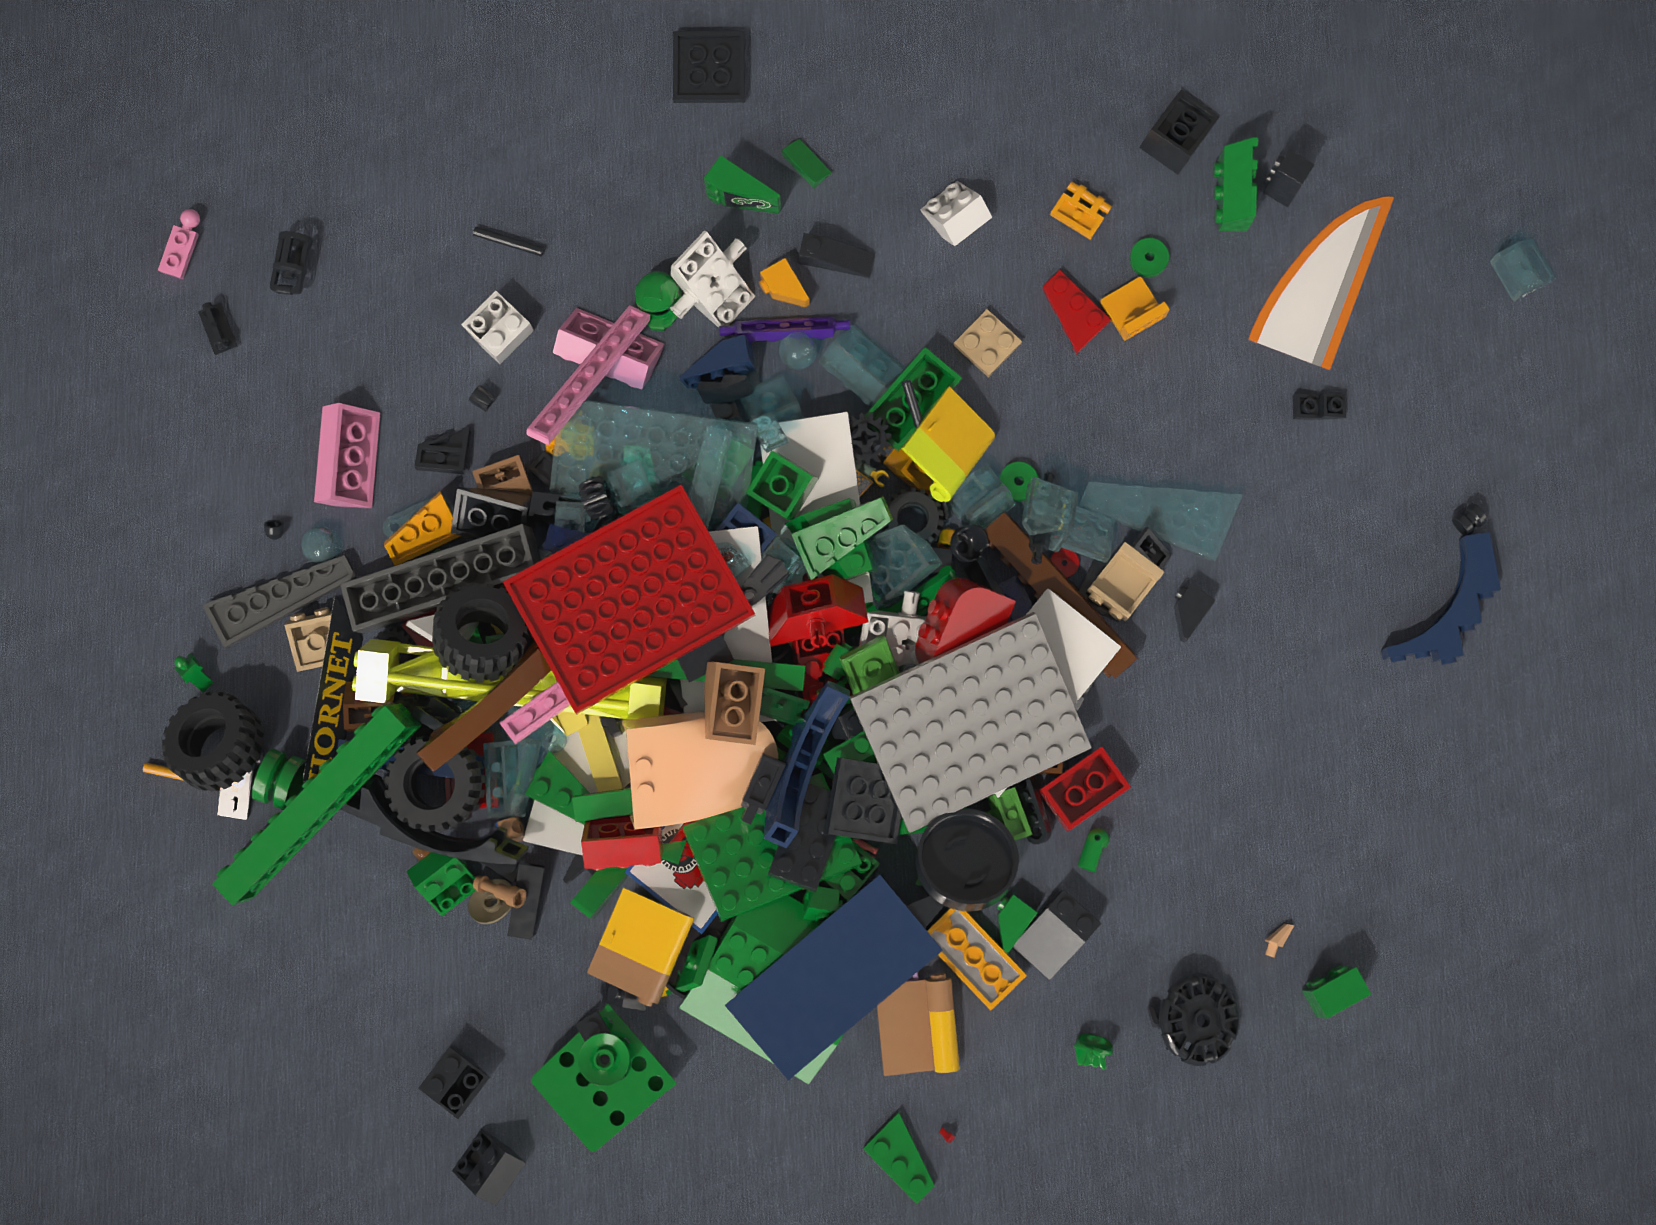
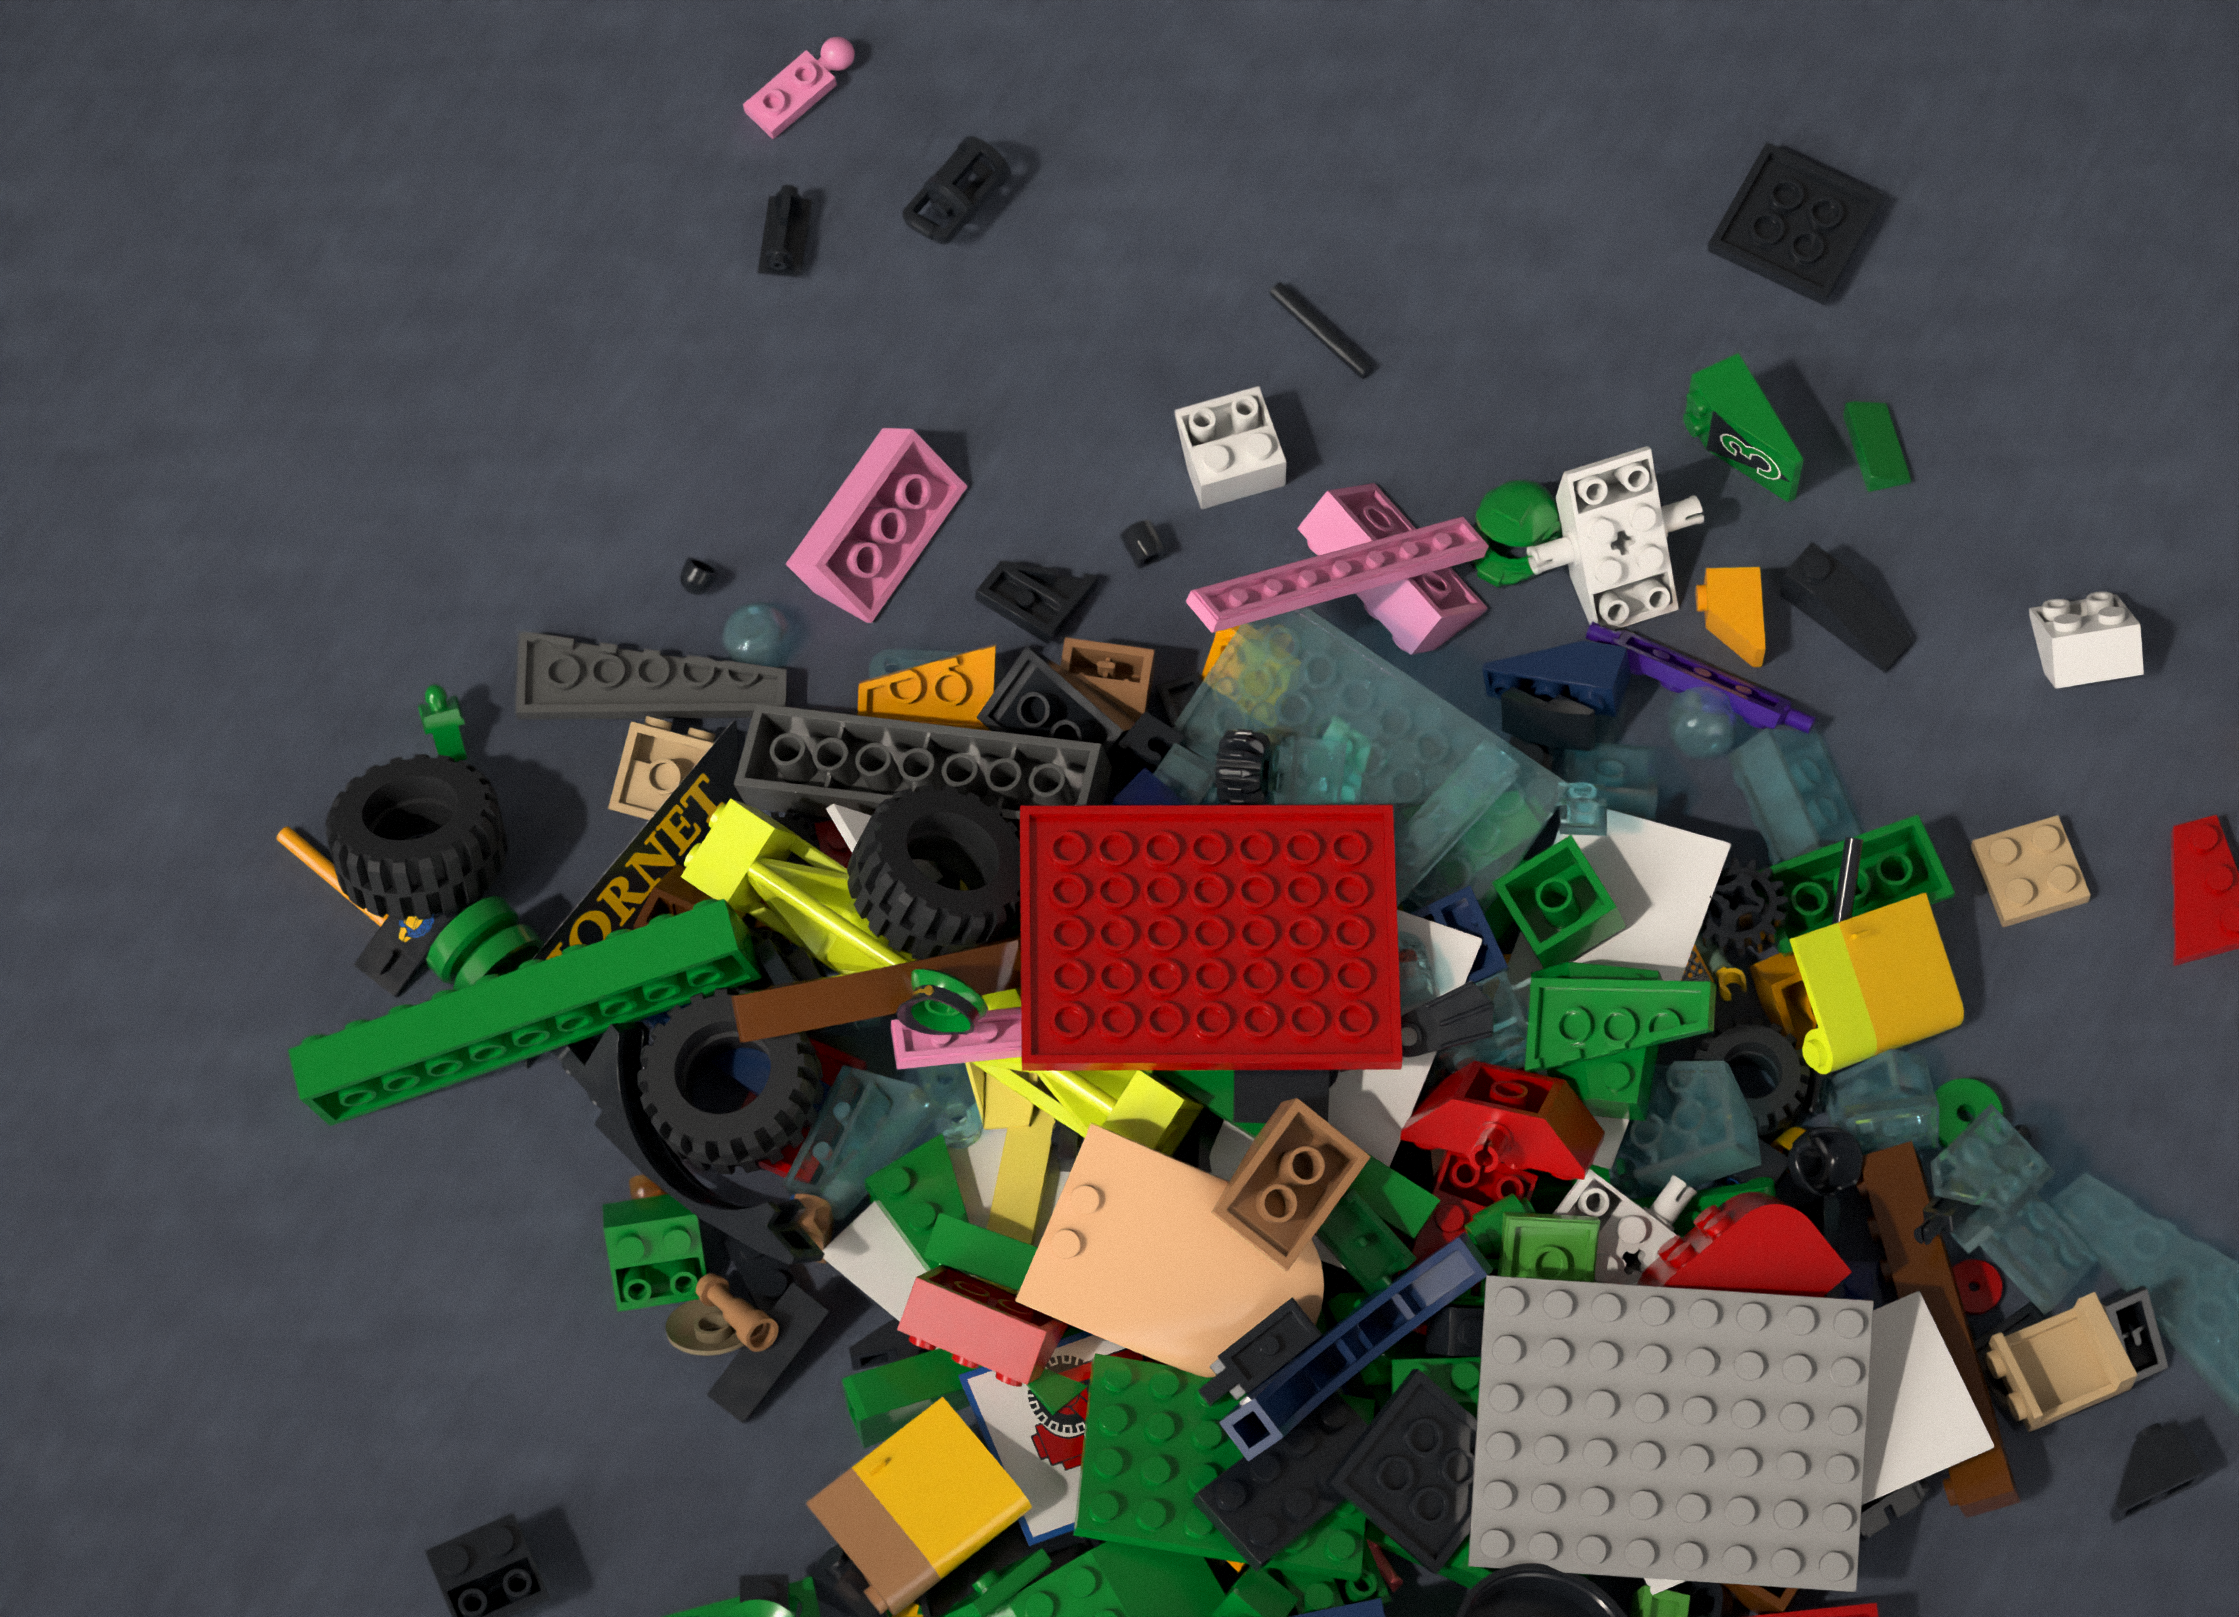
camera: 30 degrees right, 15 degrees down
(521, 706) = (941, 1004): none -> piece

